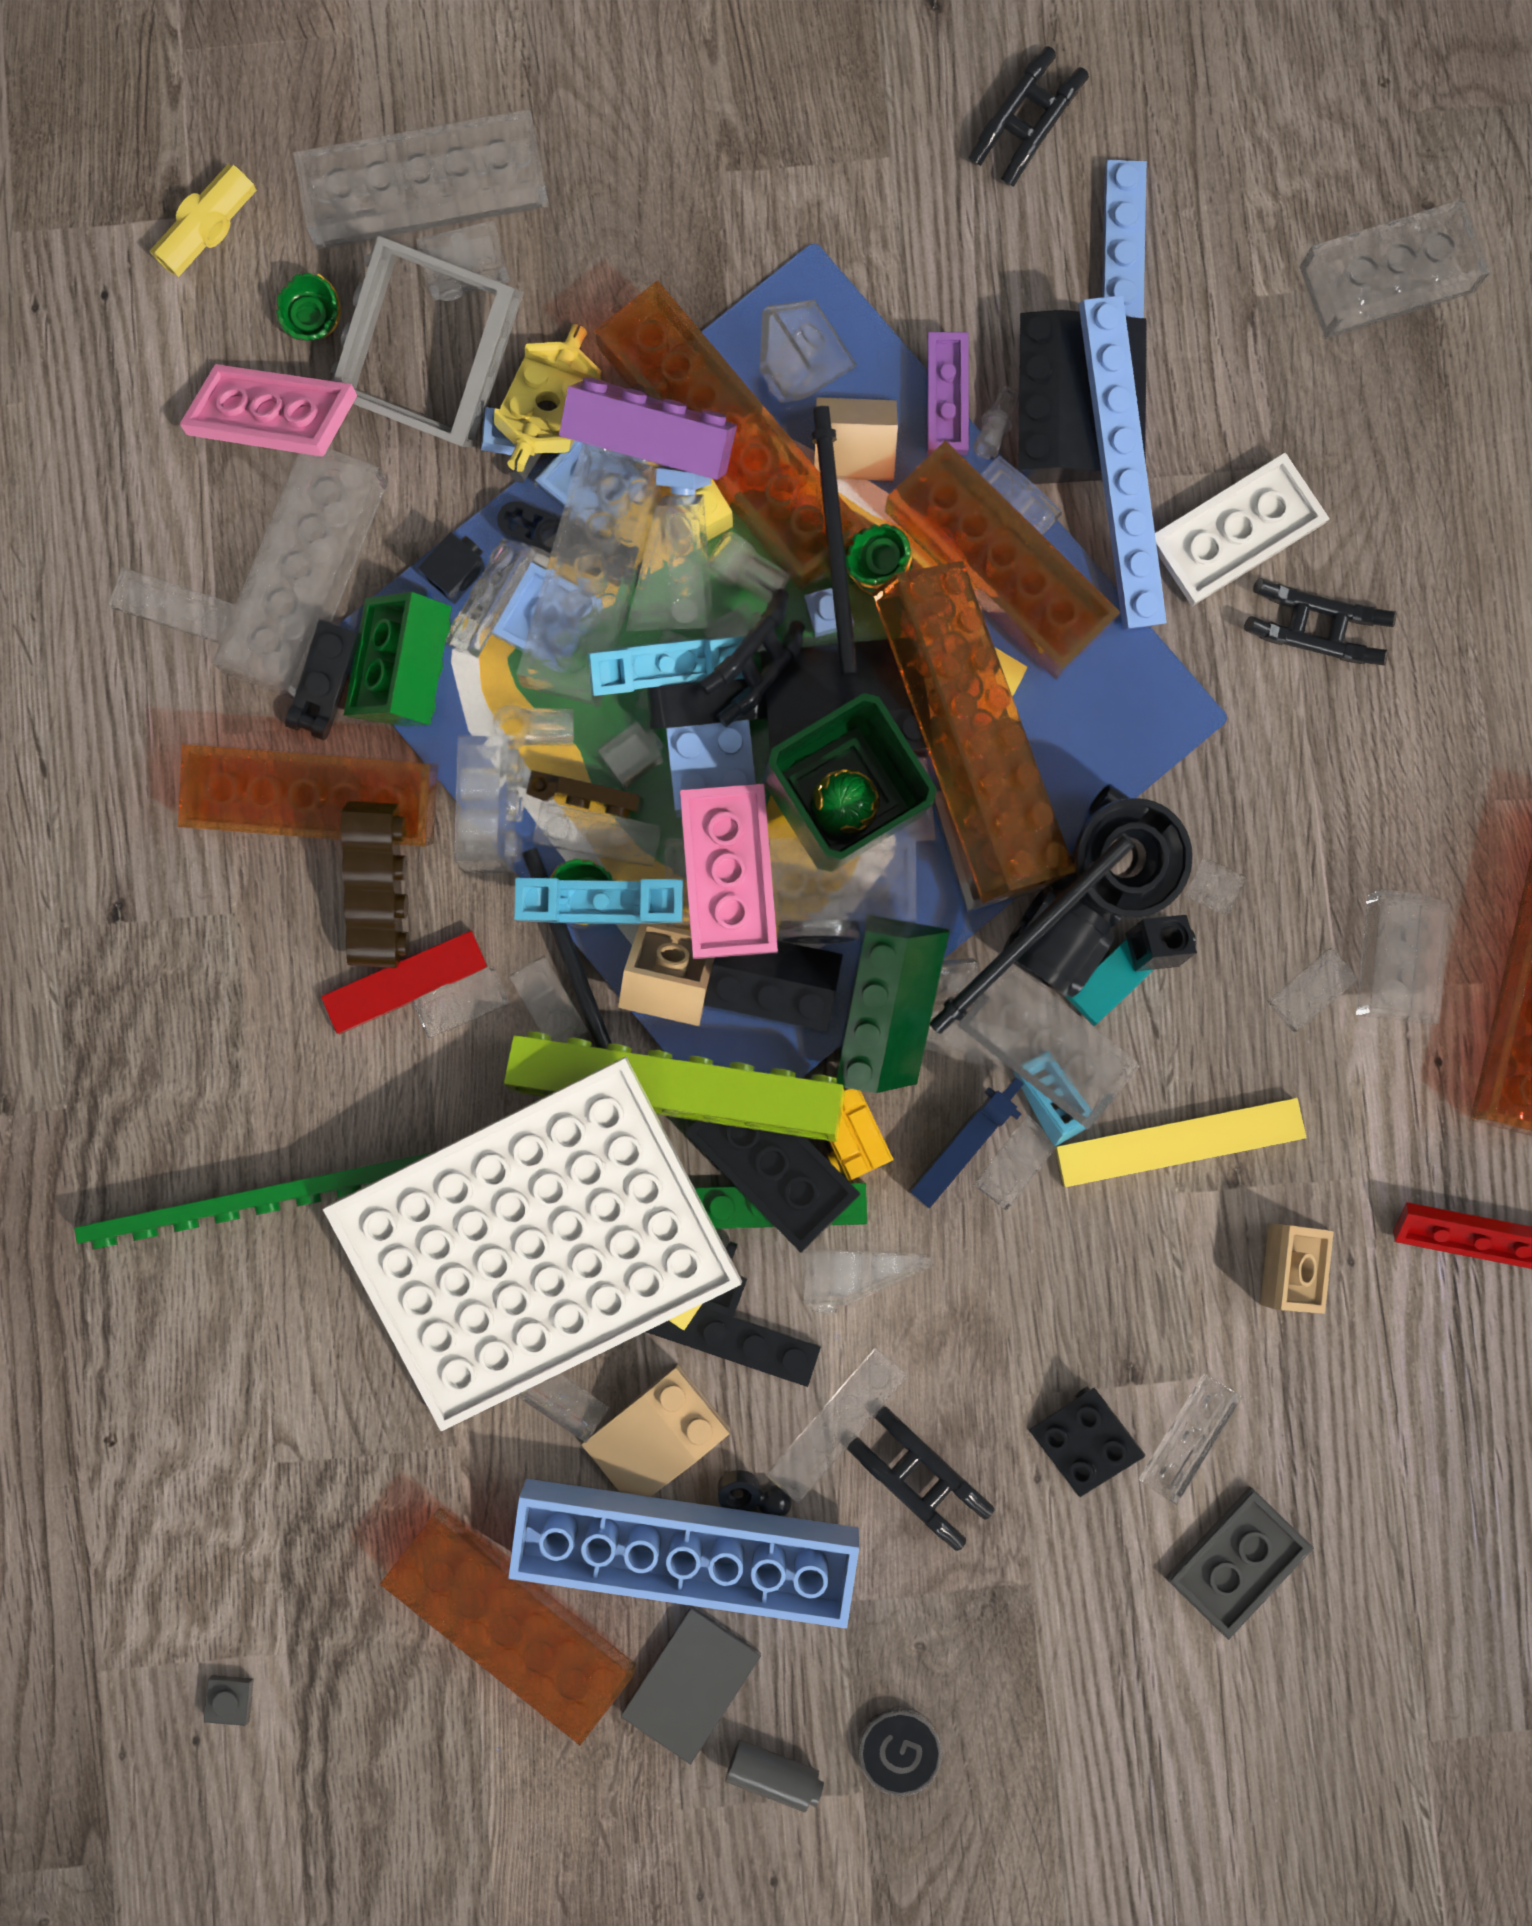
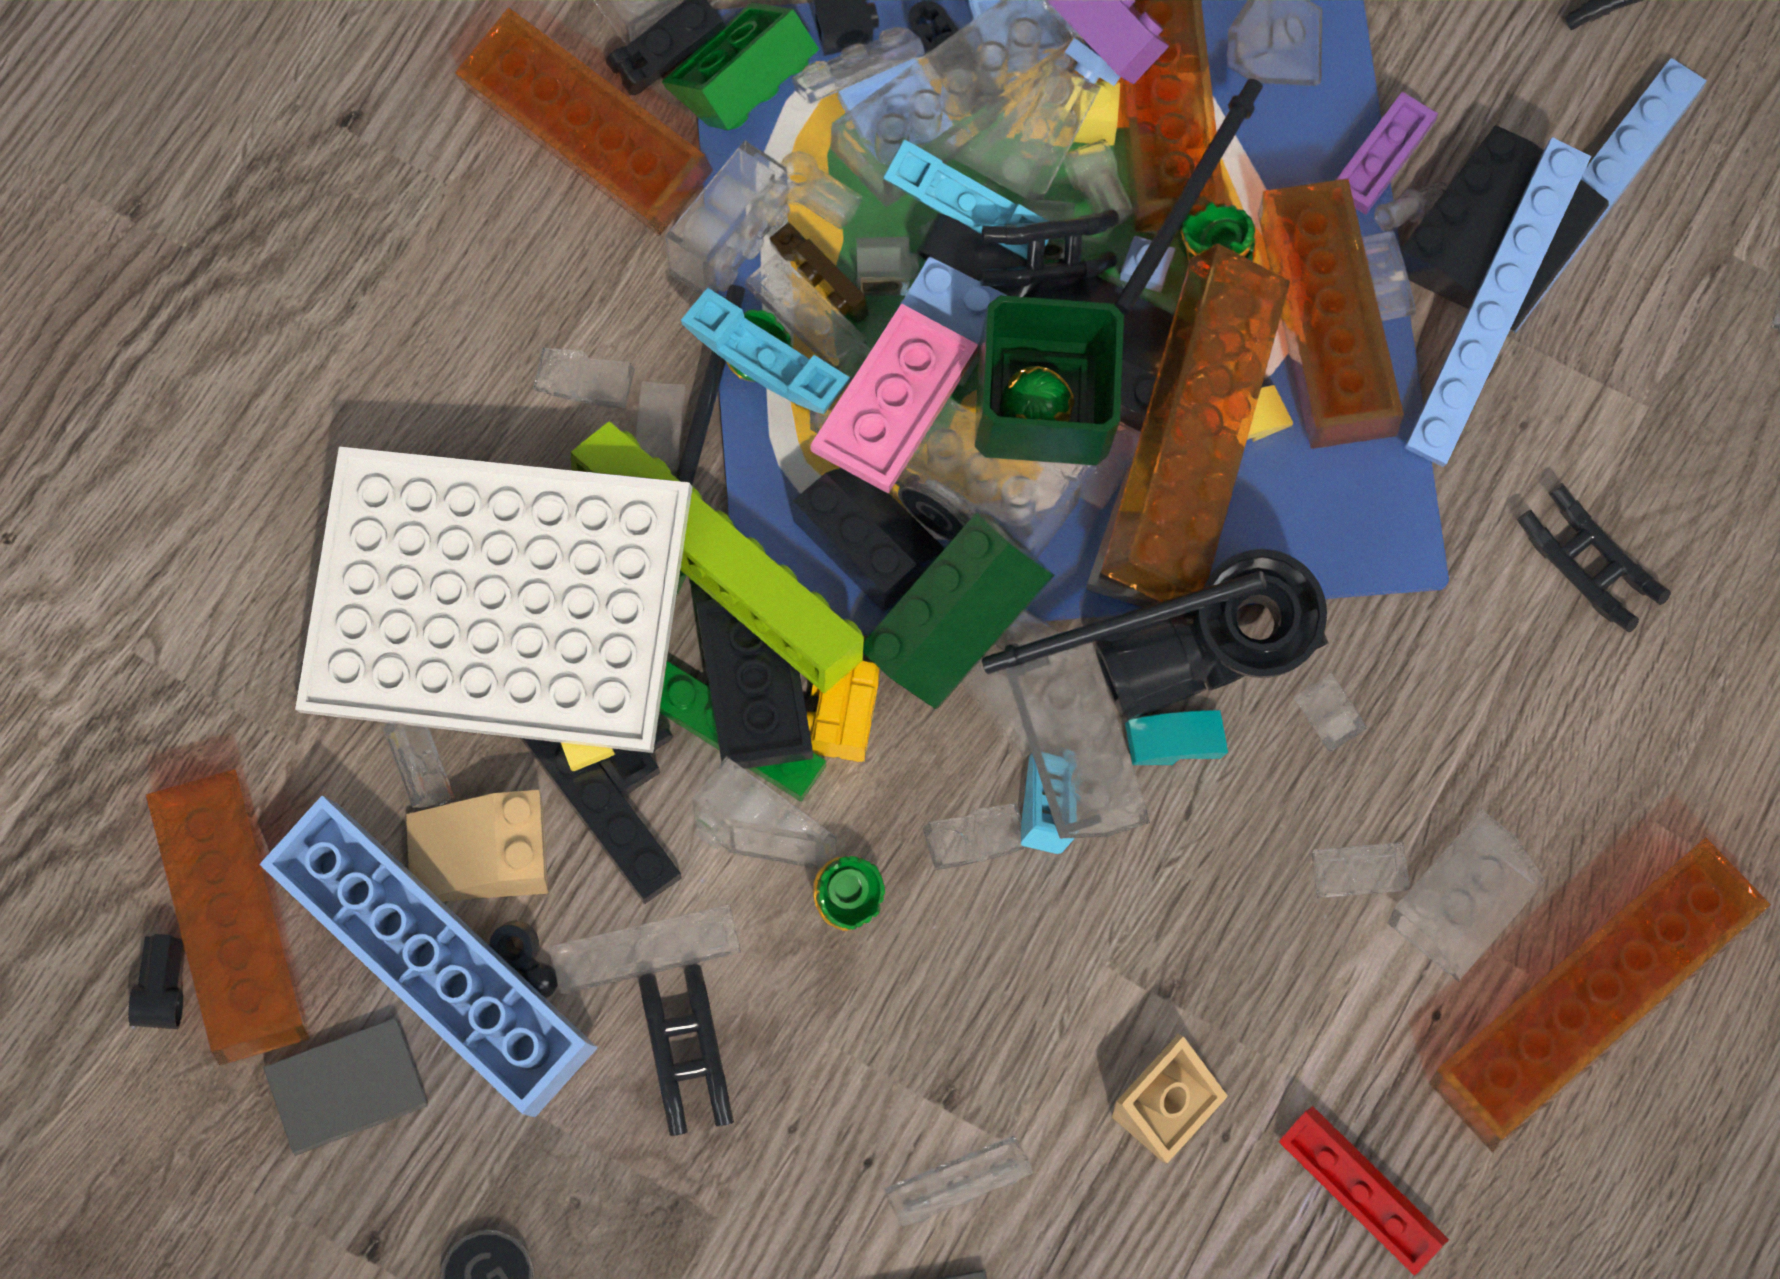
camera: 35 degrees right, 15 degrees down
(227, 1207) = (249, 404): green plate -> none
(373, 885) = (580, 224): dark brown brick -> none
(399, 986) = (540, 327): red tile -> none
(501, 1720) = (158, 996): none -> black piece
(663, 975) = (774, 461): tan slope -> none
(774, 1776) = (358, 1213): dark grey brick -> none
(864, 437) = (1278, 141): tan slope -> none
(958, 1278) = (848, 892): none -> green hair
(966, 1143) = (939, 782): dark blue piece -> none
(1087, 1441) = (861, 1120): black hinge -> none
(1151, 953) = (1230, 734): black brick -> none
(1180, 1142) = (1140, 920): light yellow tile -> none
(1239, 529) = (1573, 432): white plate -> none

